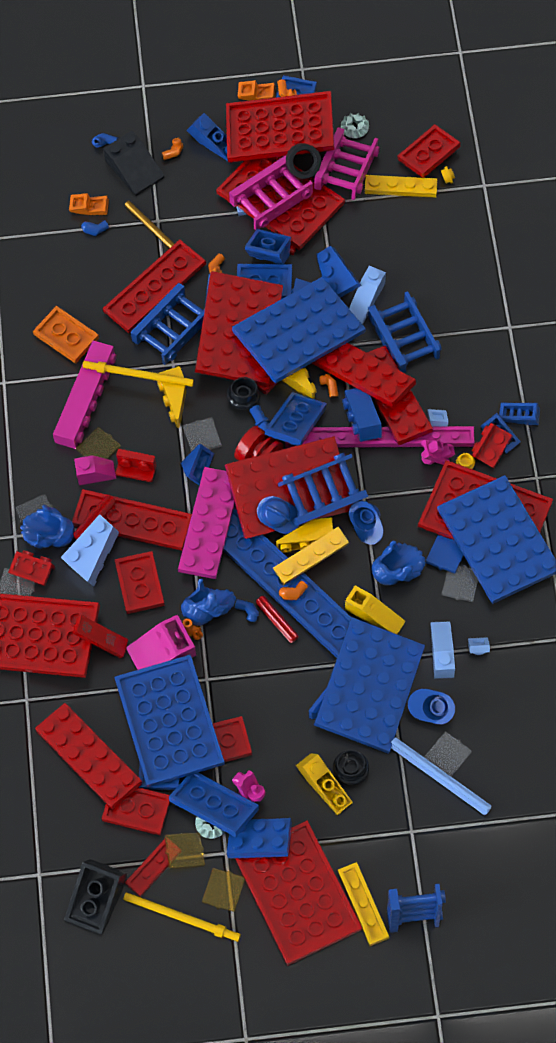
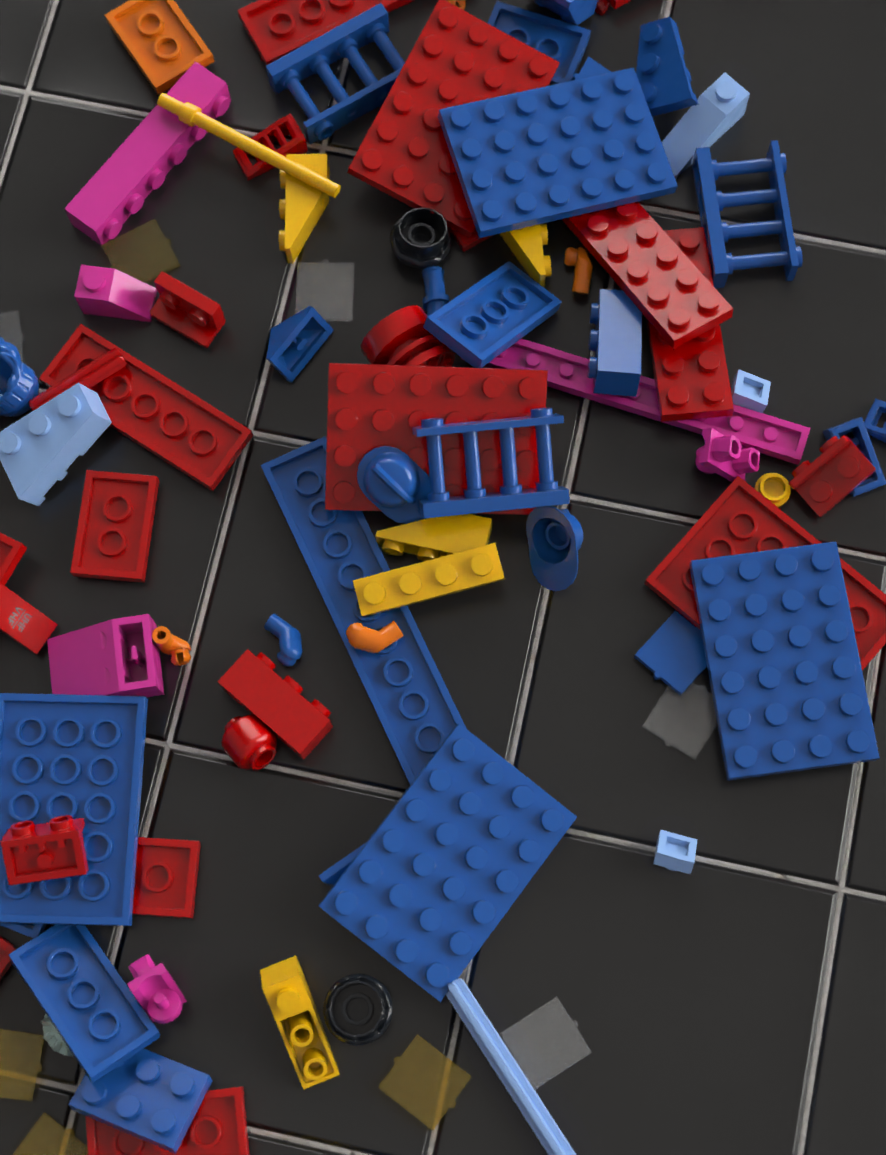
camera: 20 degrees right, 10 degrees up
(147, 363) = (274, 132): none -> red slope
(171, 739) = (44, 850): none -> red bracket
(206, 604) = (213, 607): blue hair -> none
(208, 525) = (267, 464): dark pink plate -> none
(249, 662) = (249, 742): none -> red head
(255, 640) = (277, 702): none -> red brick
(277, 619) = (330, 675): red axle -> none
(373, 610) = (506, 722): yellow slope -> none
(395, 792) = (425, 1082): none -> clear yellow piece
(398, 564) = (582, 646): blue hair -> none
(431, 706) = (545, 945): blue piece -> none
(442, 650) = (606, 834): light blue slope -> none

